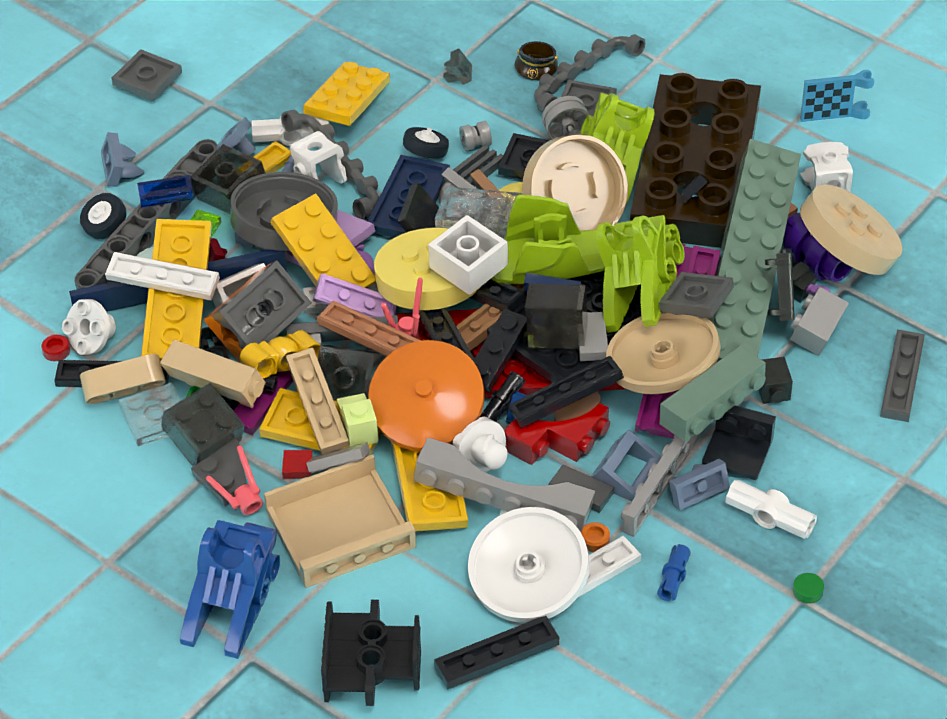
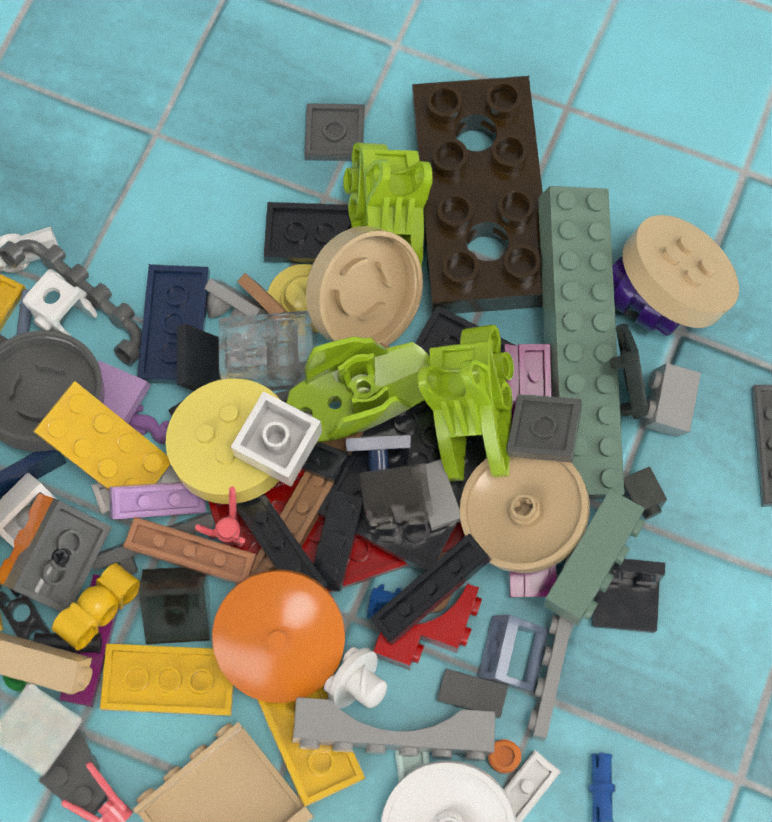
camera: 15 degrees left, 25 degrees up
(295, 464) = (154, 740): red tile -> none
(317, 401) = (155, 663): tan piece -> none
(338, 457) = (200, 730): light grey tile -> none
(346, 93) = (62, 187): yellow plate -> none
(358, 419) = (206, 673): yellowish green arch -> none
(425, 142) = (172, 239): black wheel -> none
(458, 68) = (180, 115): clear smoke tile -> none
(475, 135) = (225, 214): light grey wheel -> none
(476, 162) = (228, 251): dark grey tile -> none
(503, 397) = (358, 596): black pin -> none
(535, 60) = (263, 82): piece -> none
(562, 113) = (322, 172): light grey wheel -> none
(633, 45) = (317, 70): dark grey bar -> none
(695, 185) = (500, 252): black tile -> none
(699, 484) = (606, 651): sand blue tile -> none
(771, 509) = (683, 674): white piece -> none
(804, 282) = (654, 354): pearl dark grey piece -> none
(808, 588) = (745, 767): green tile -> none
(829, 165) = (630, 179): white piece -> none
(834, 97) = (614, 71): dark azure flag -> none

